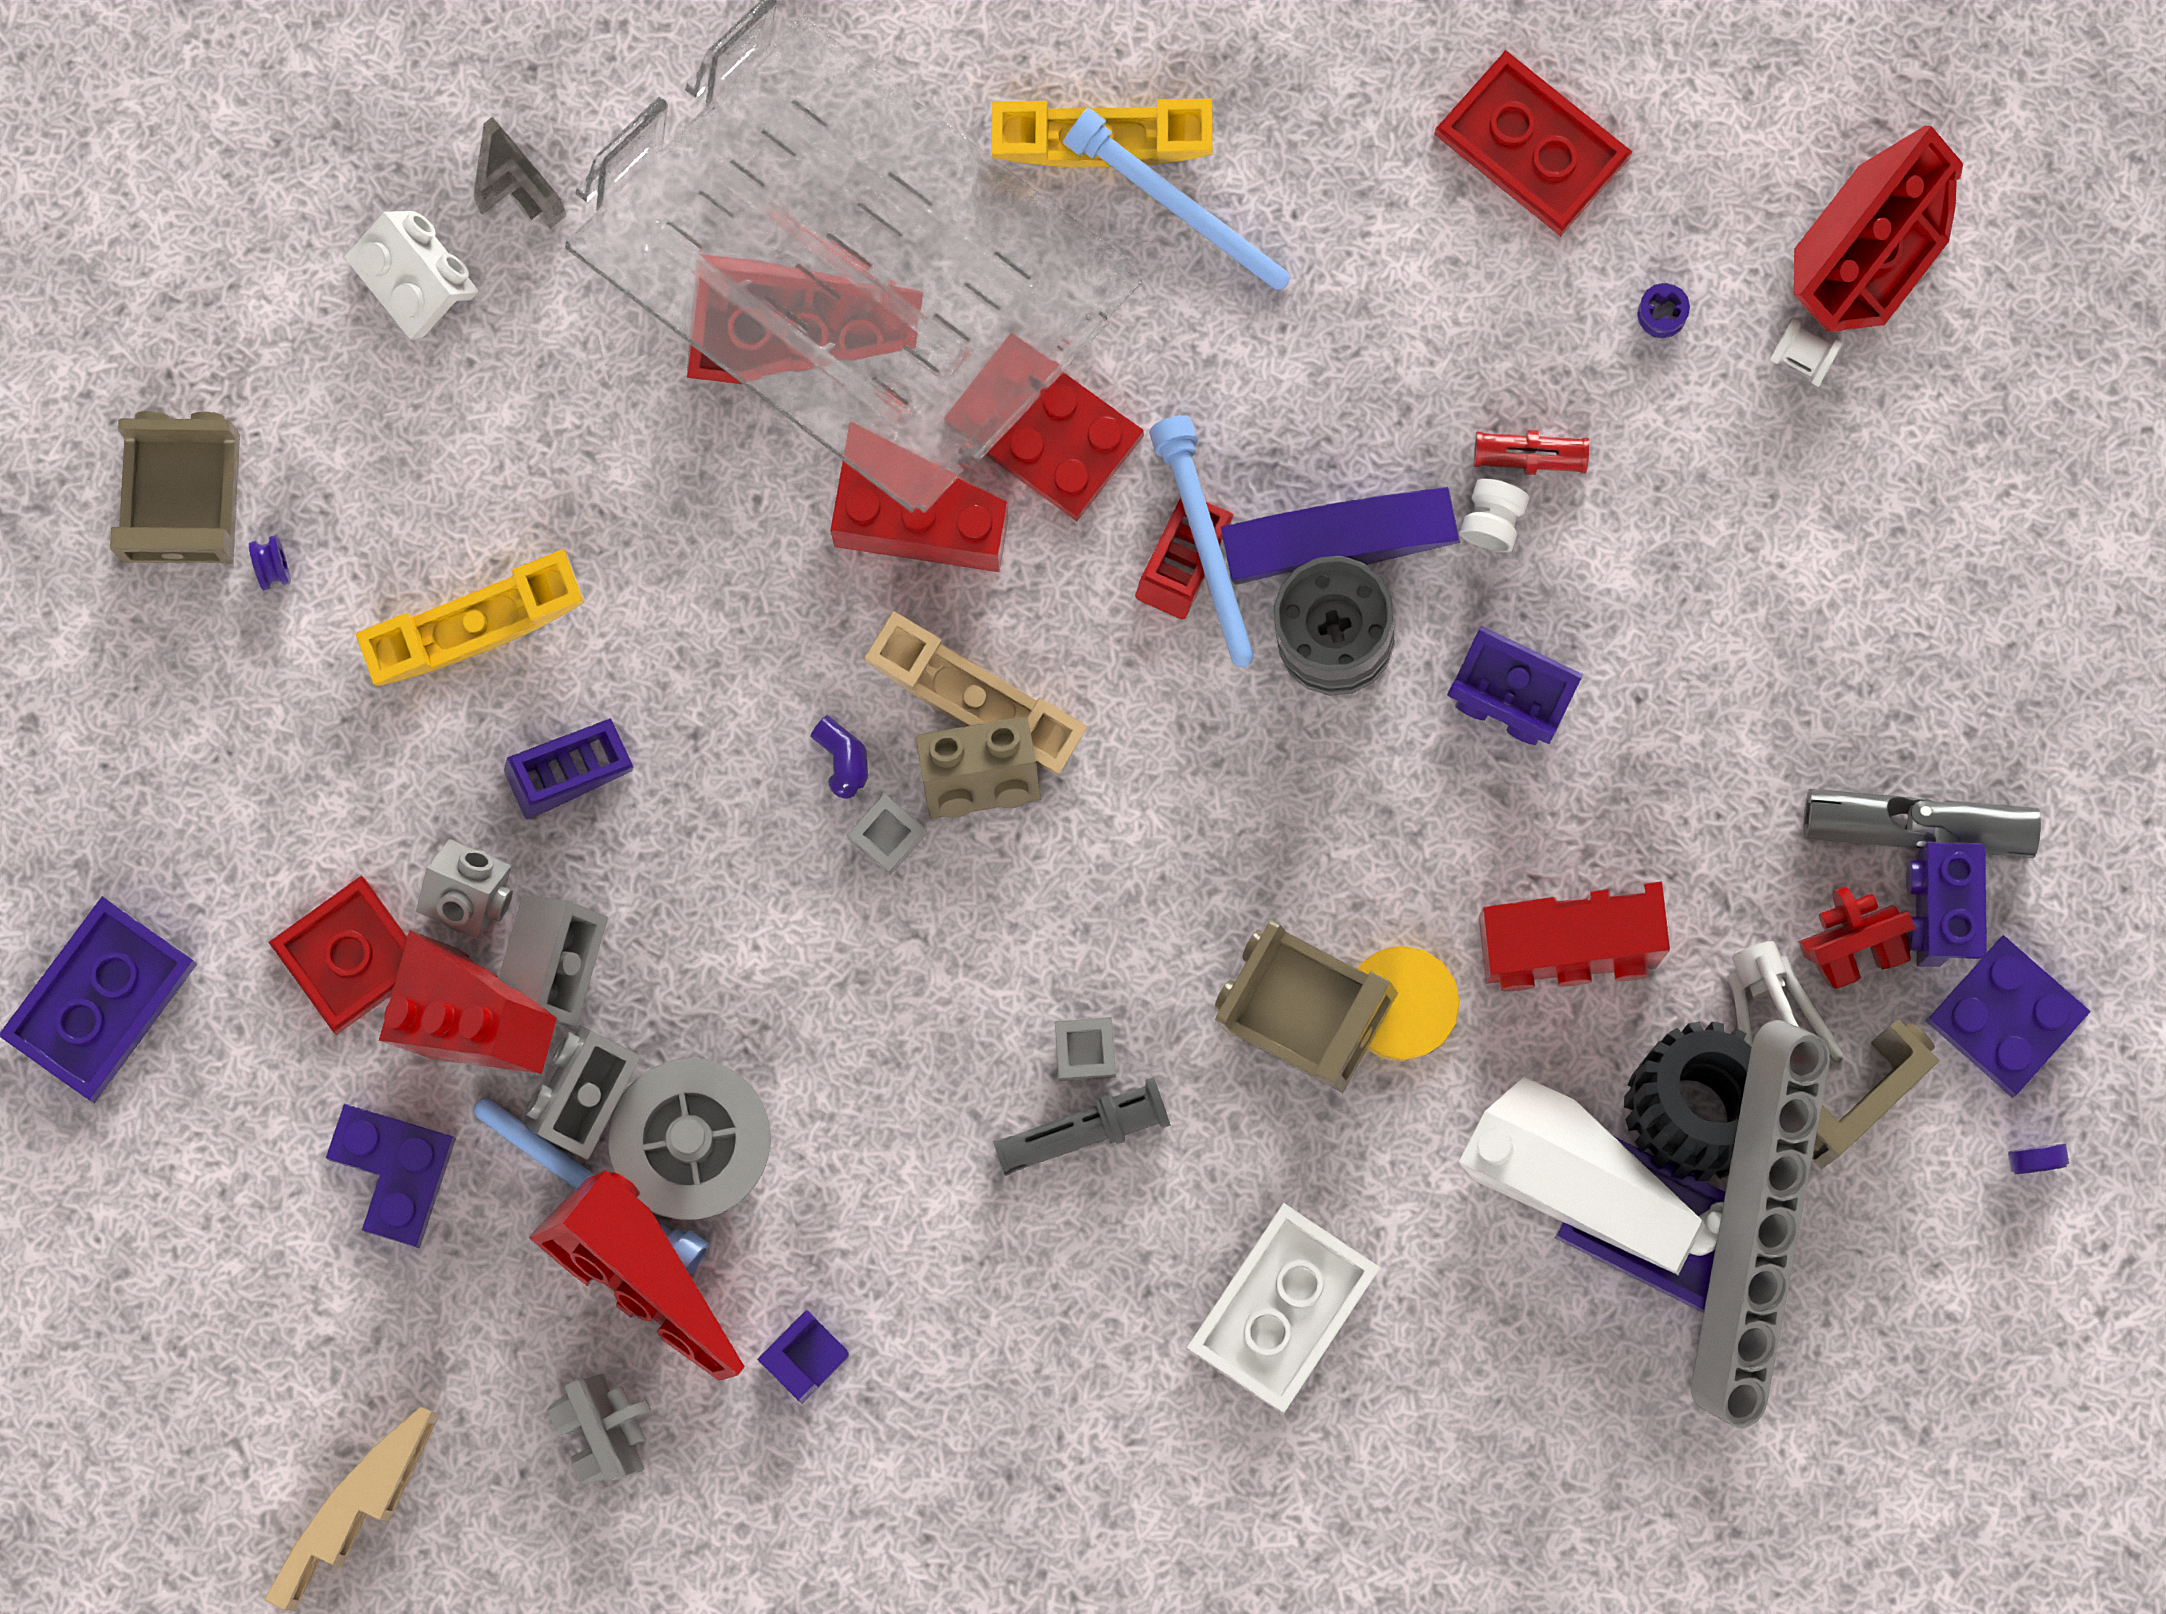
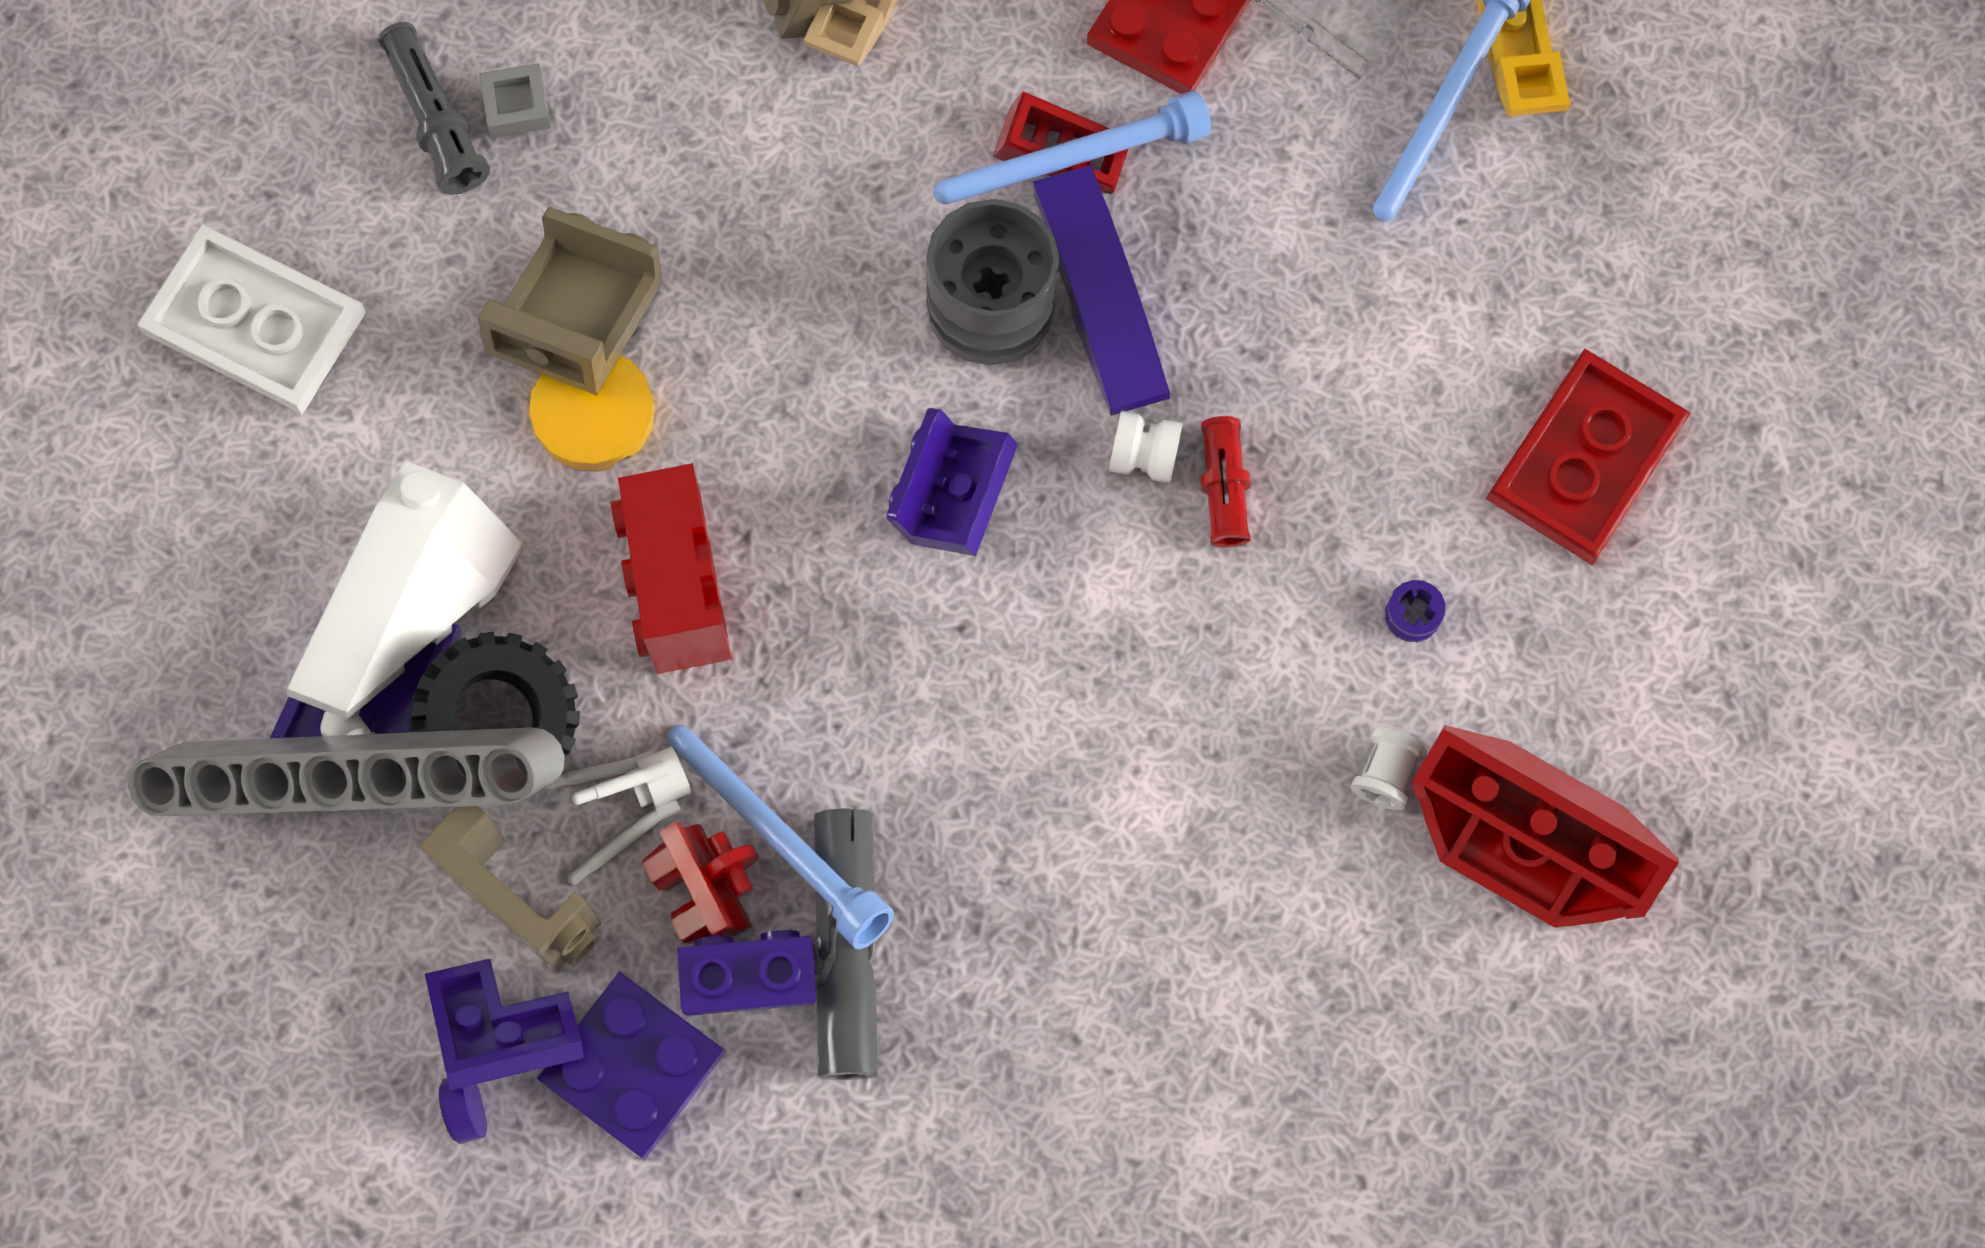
camera: 80 degrees right, 5 degrees down
(1910, 802) = (859, 914): none -> light blue piece
(1991, 1123) = (491, 1041): none -> dark purple plate

